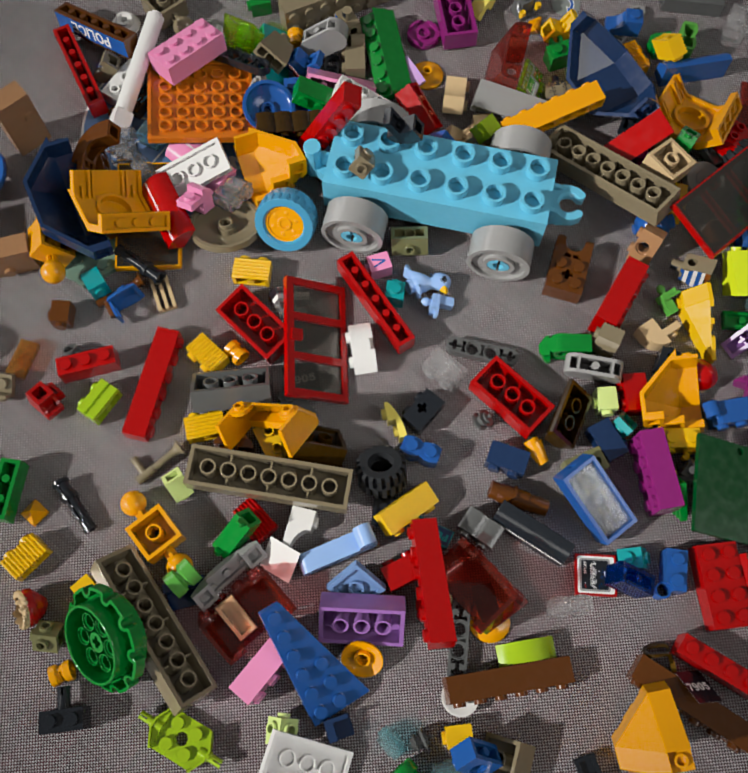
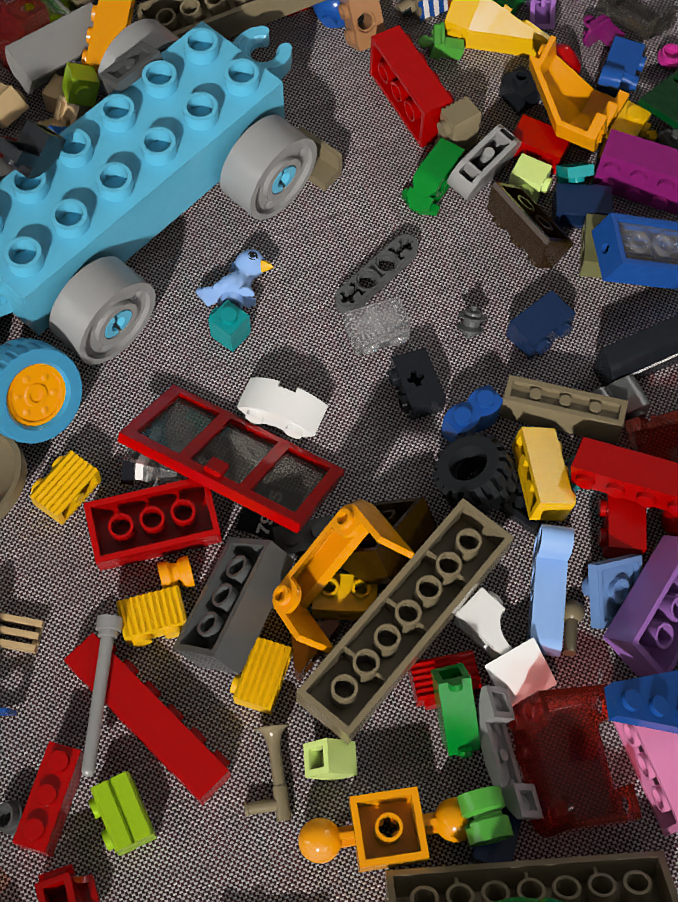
camera: 60 degrees left, 5 degrees down
(182, 337) = (108, 629): none -> light grey piece
(236, 617) = (572, 777): light nougat tile -> none
(333, 571) = (573, 615): none -> dark tan bar
(363, 162) = (45, 227): dark tan bracket -> none
(375, 303) = (226, 354): red brick -> none
(378, 265) = (173, 323): bright pink brick -> none
(392, 418) = (398, 425): light yellow slope -> none
(409, 240) = (168, 263): olive brick -> none
(437, 301) = (277, 287): light blue piece -> none
(456, 499) = (564, 409): none -> dark tan panel
(494, 142) = (129, 67): none -> dark grey panel
(511, 397) = (464, 271): red brick -> none
(519, 498) = (587, 348): reddish brown piece -> none
(532, 282) = (327, 165): none -> dark tan panel
(537, 450) = (542, 283): light orange cone -> none
(567, 271) = (335, 116): reddish brown brick -> none
(653, 337) = (479, 82): tan brick -> none

